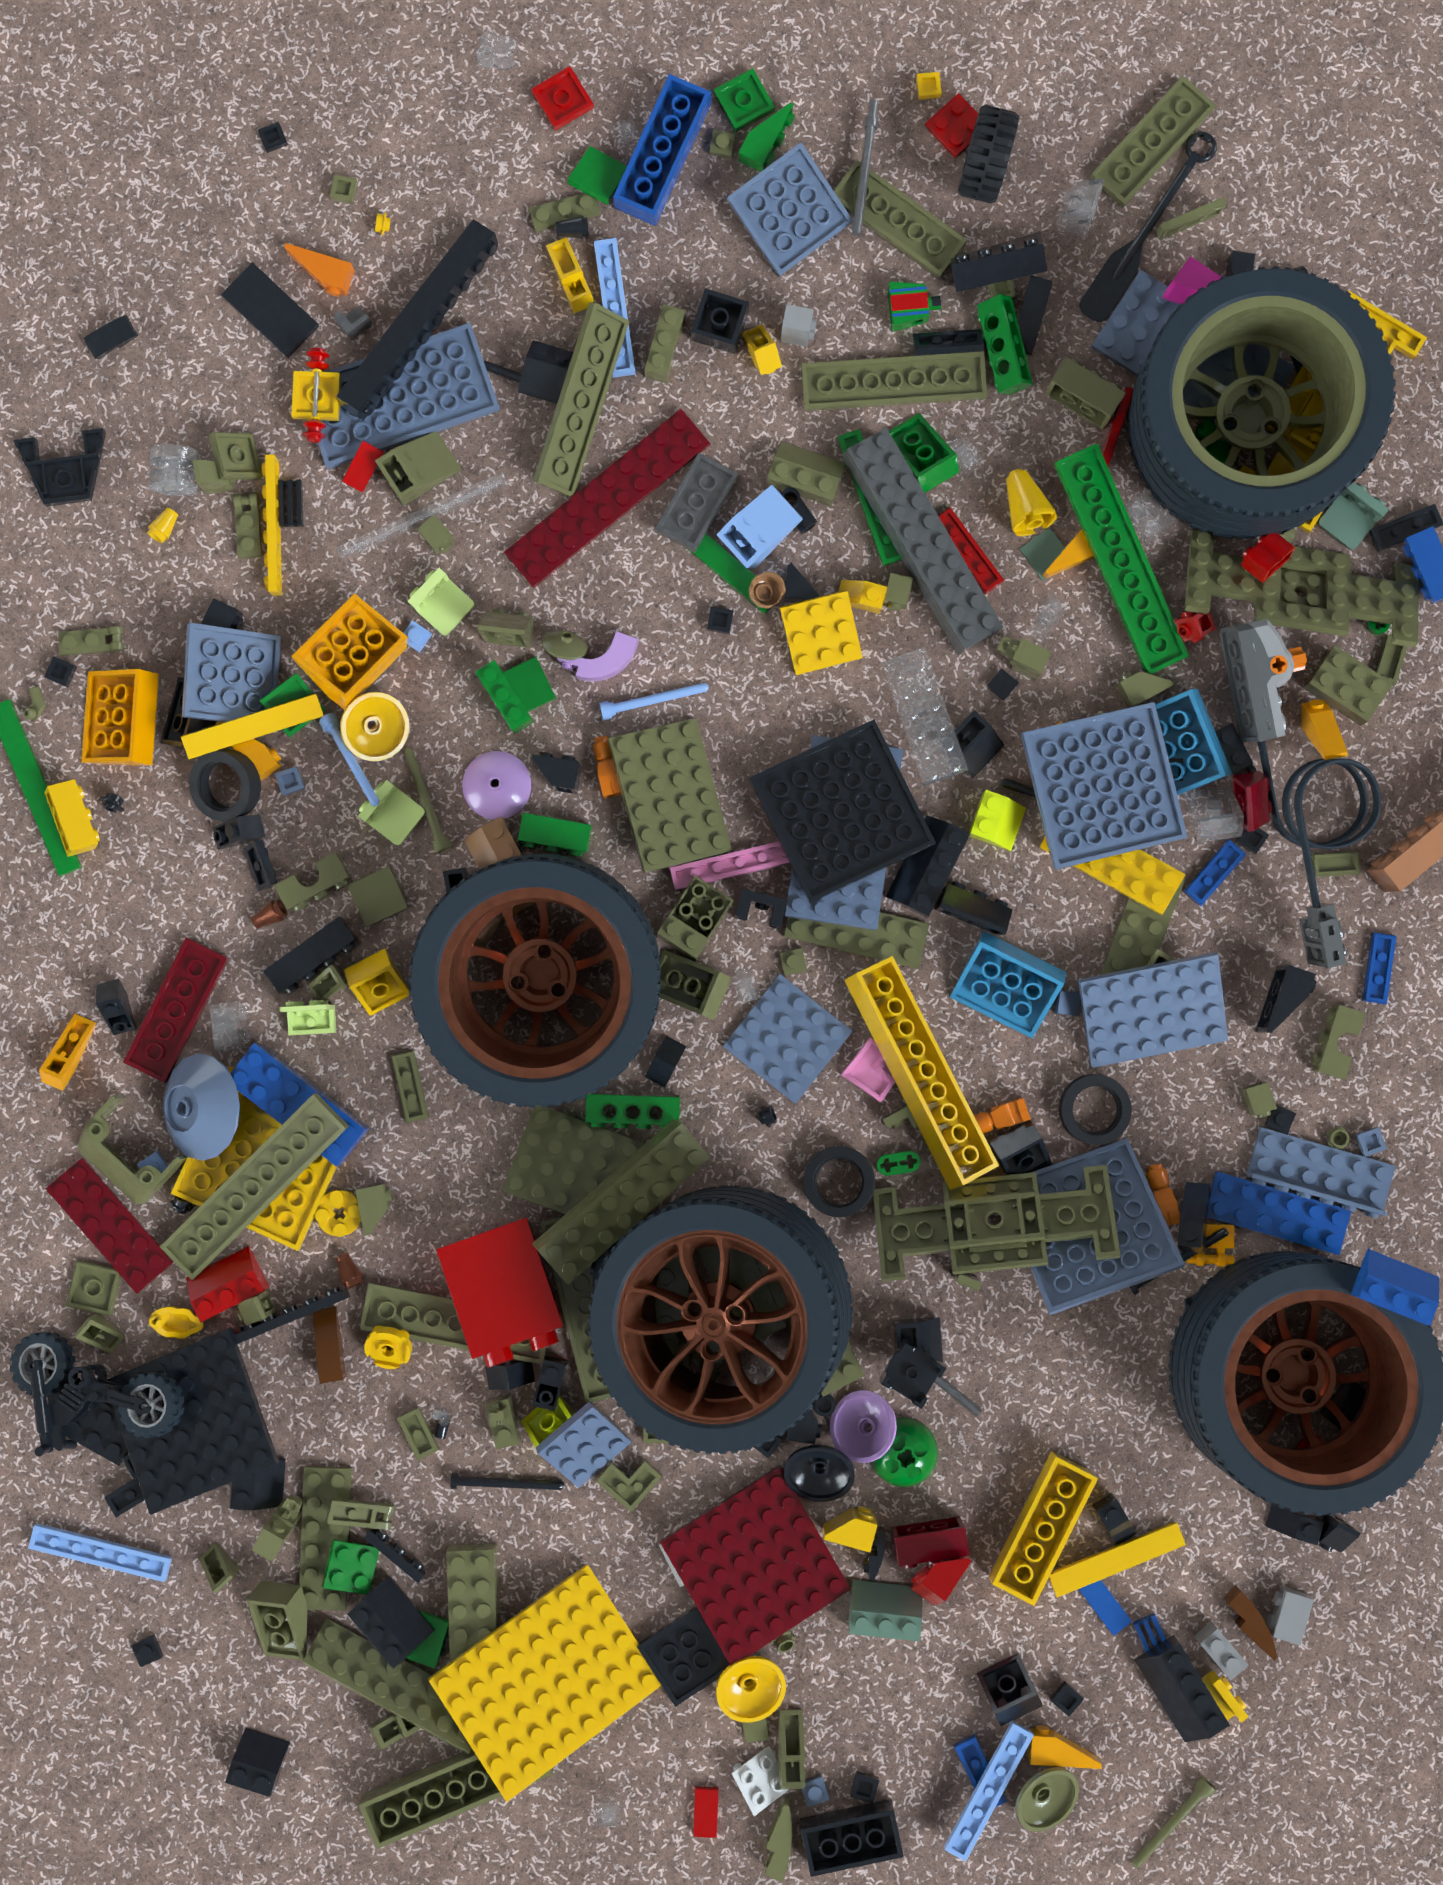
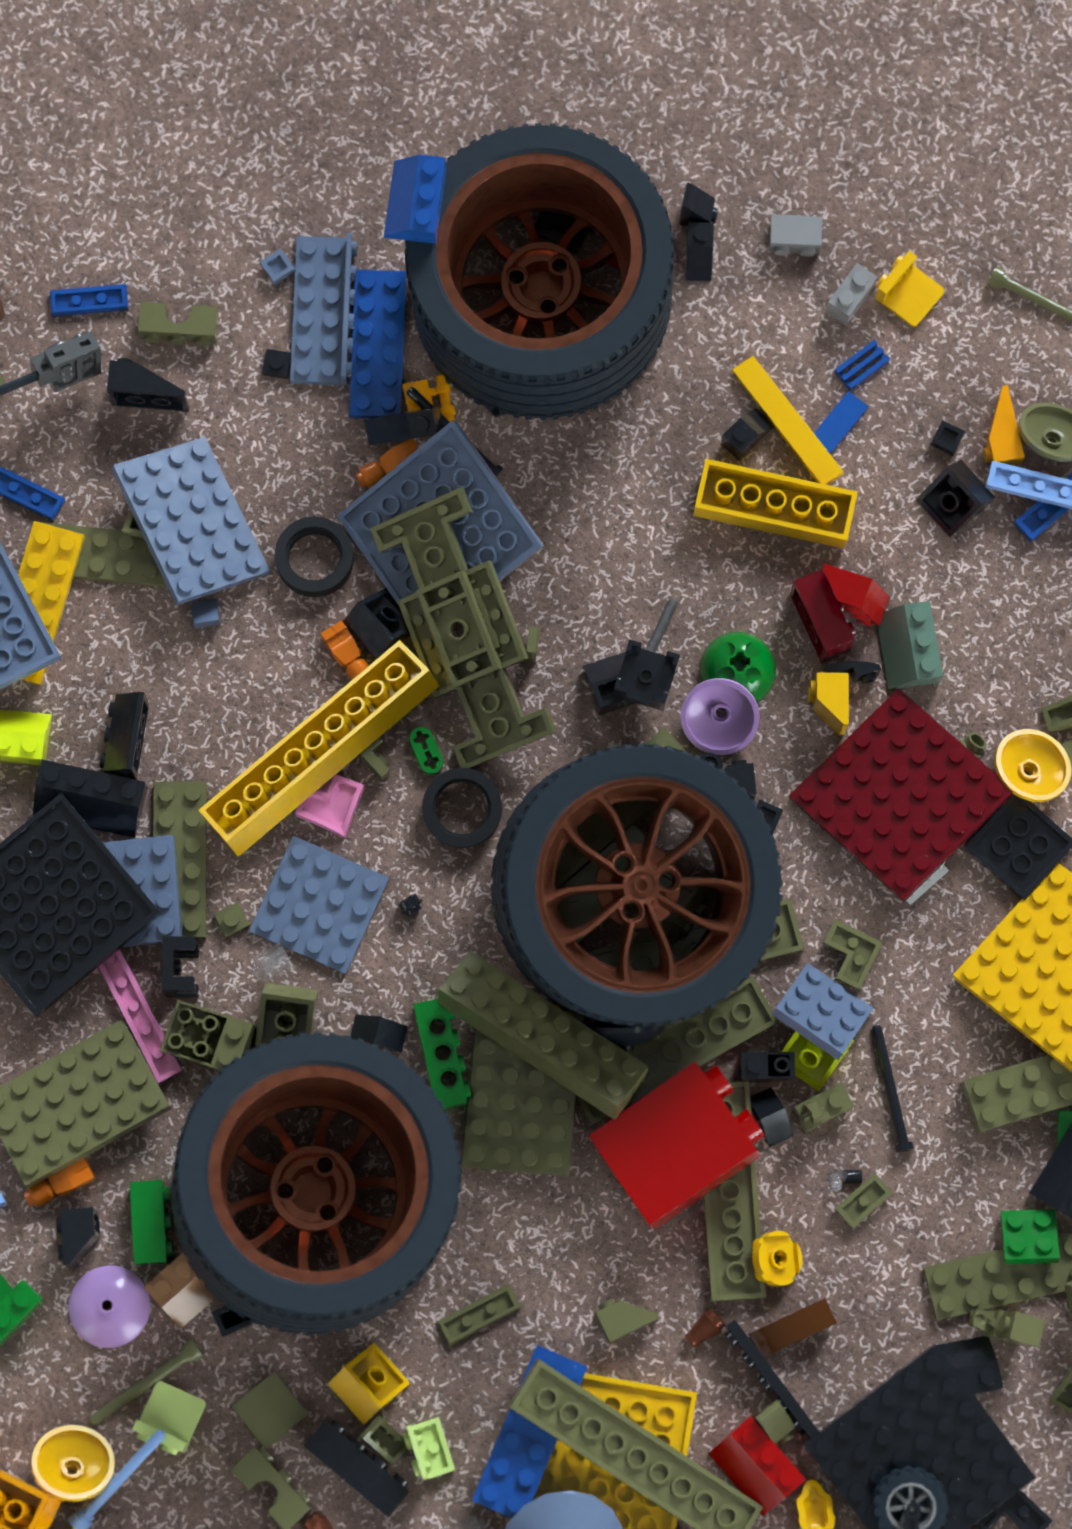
camera: 110 degrees left, 10 degrees down
(326, 1216) = (657, 1351): yellow plate -> none
(359, 1514) = (969, 1242): olive plate -> none
(396, 1554) = (1001, 1189): black plate -> none
(819, 1473) = (792, 748): black dish -> none
(1008, 984) = (200, 680): dark azure slope -> none
(1181, 1691) = (903, 323): black slope -> none
(1251, 1621) = (812, 271): reddish brown slope -> none
(1259, 1099) = (260, 390): olive brick -> none
(1342, 1142) = (283, 294): olive plate -> none

